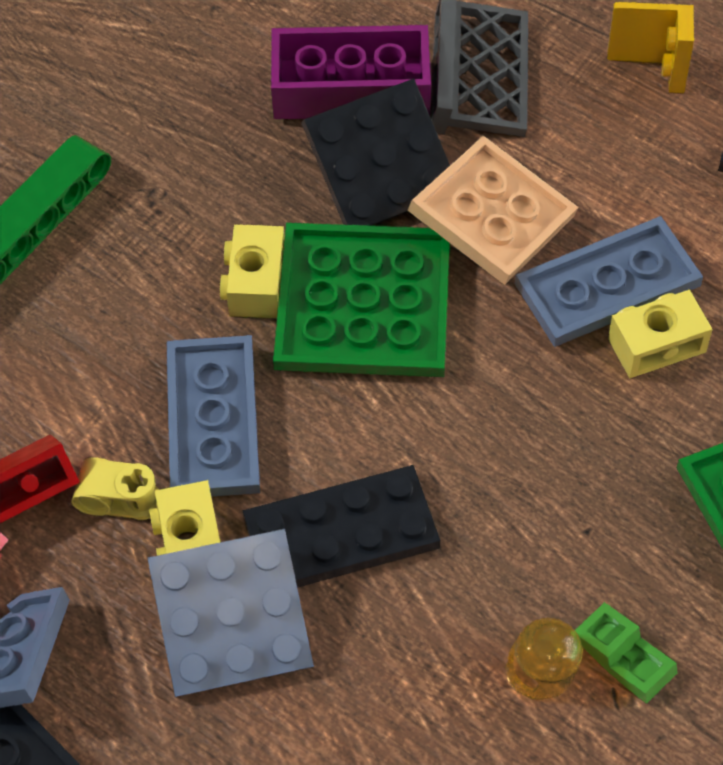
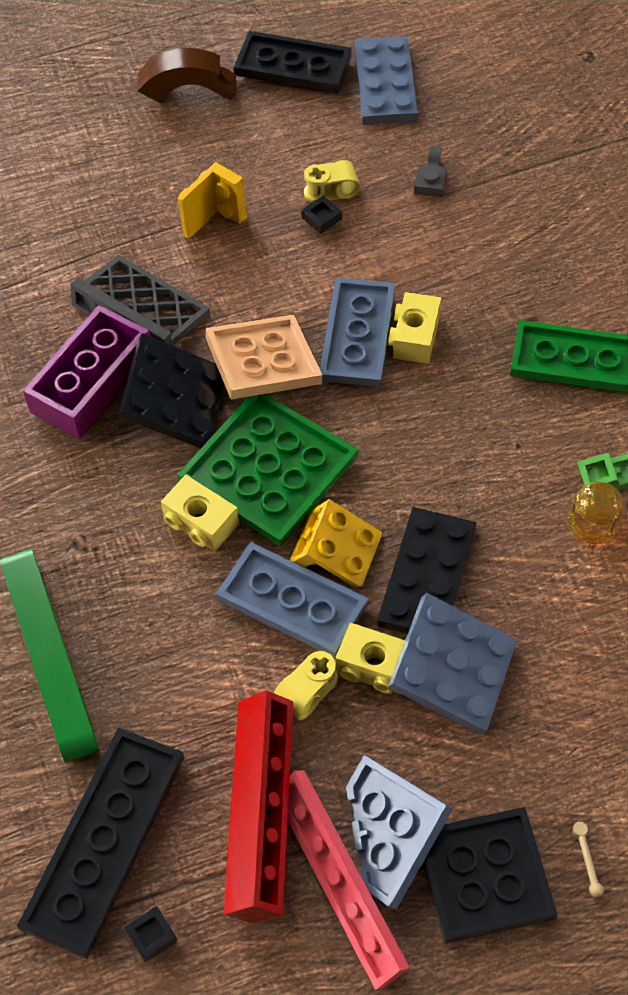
camera: 55 degrees left, 0 degrees up
(310, 422) = (337, 543): none -> yellow bracket

